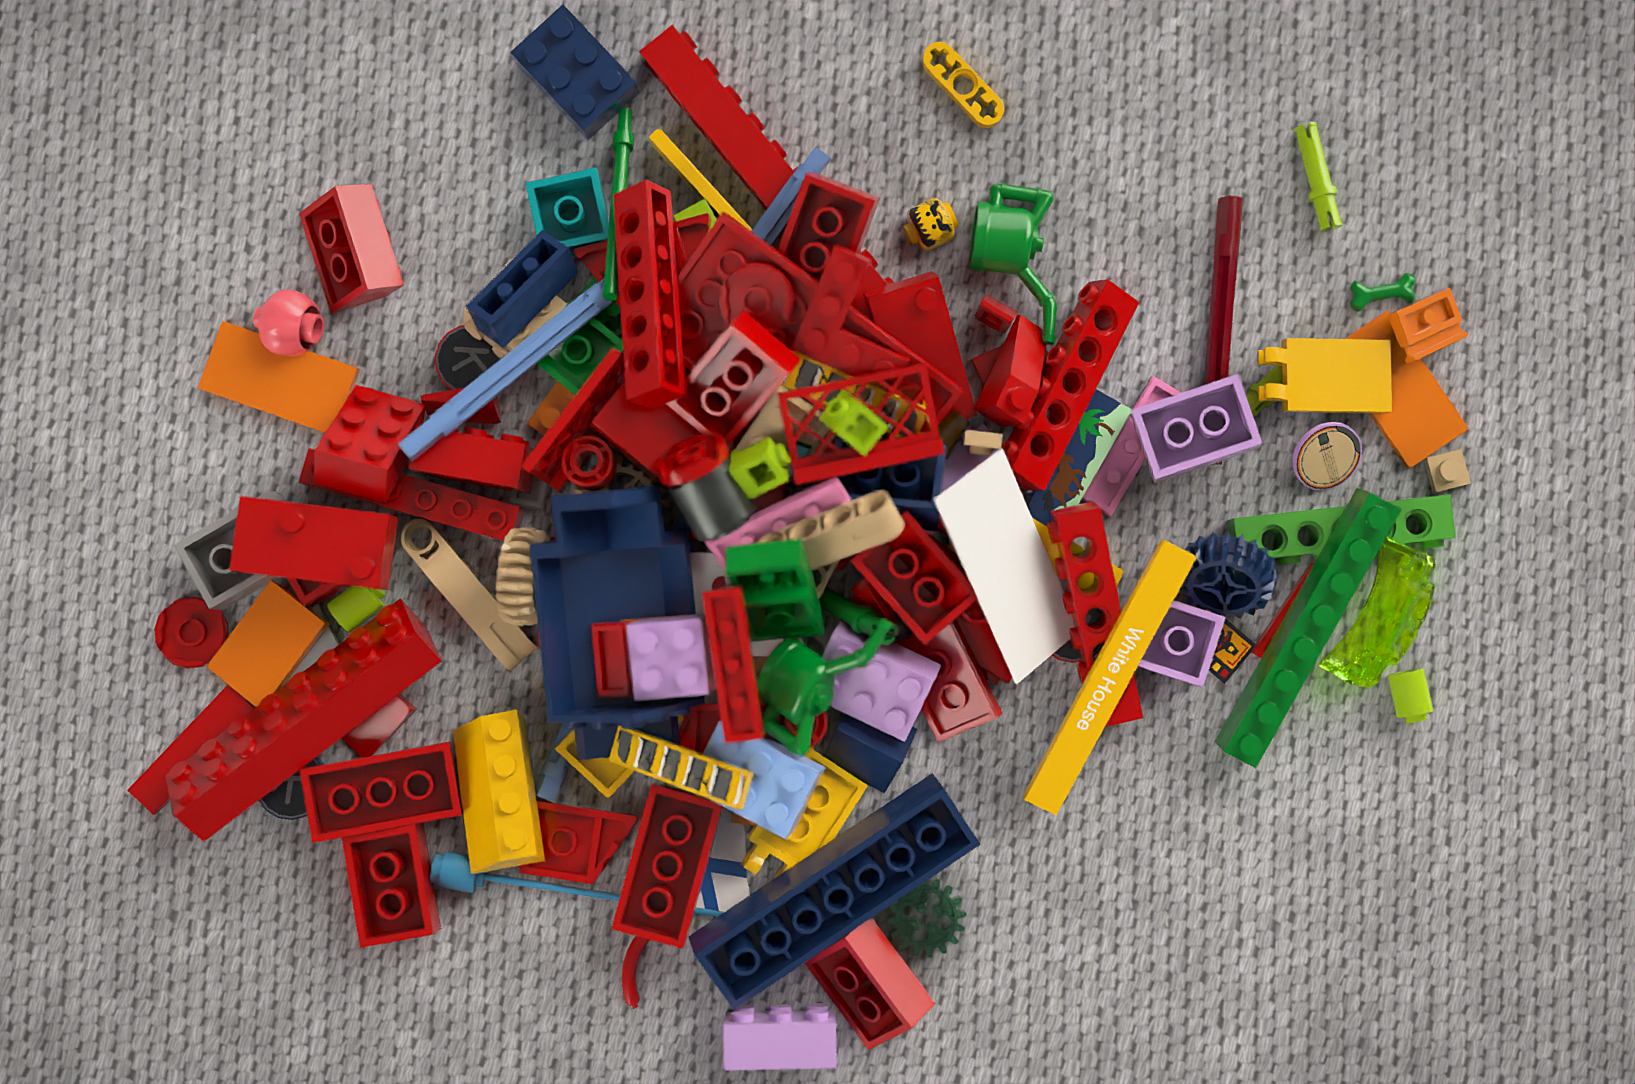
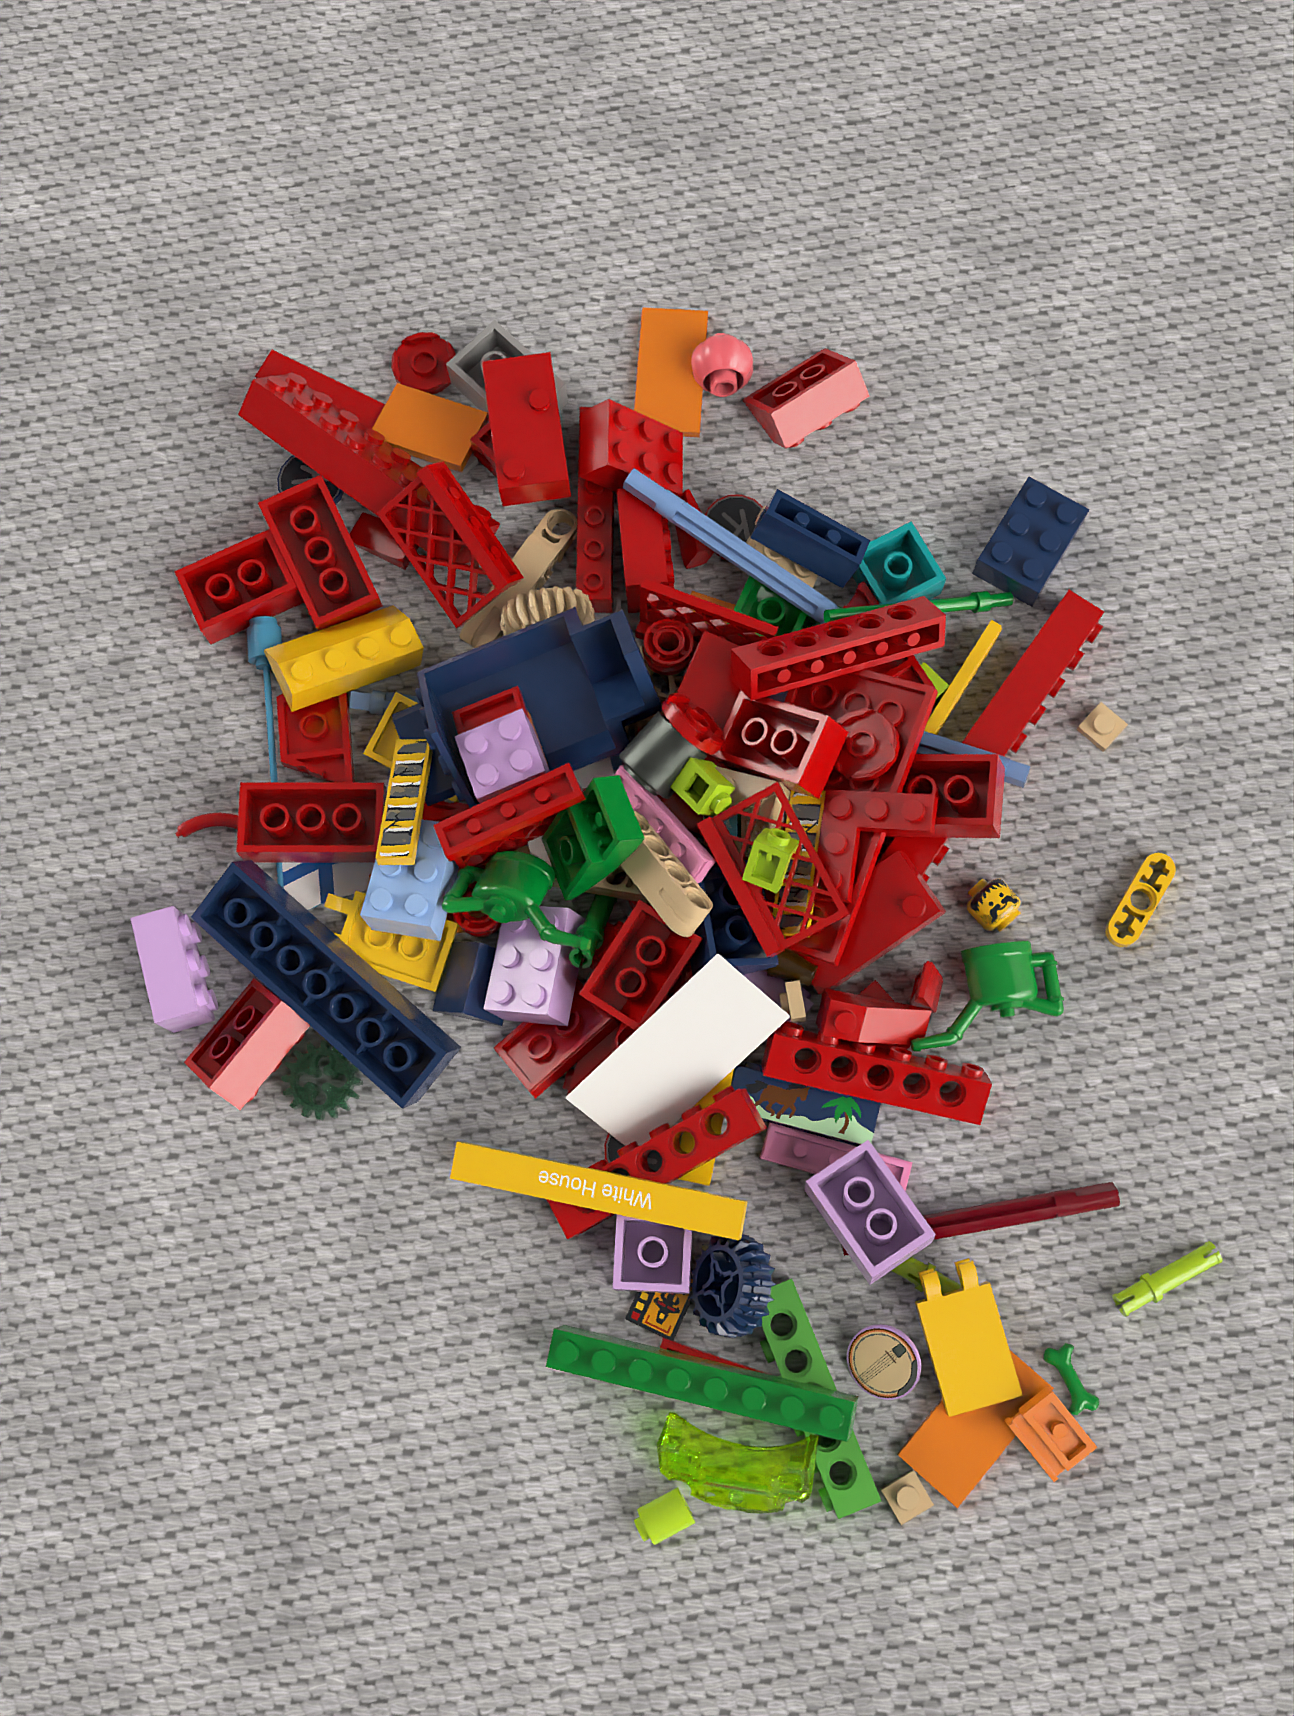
camera: 85 degrees right, 10 degrees down
(356, 606) = (483, 489): lime brick -> none
(412, 632) = (473, 533): none -> red fence
(782, 65) = (1102, 726): none -> tan plate

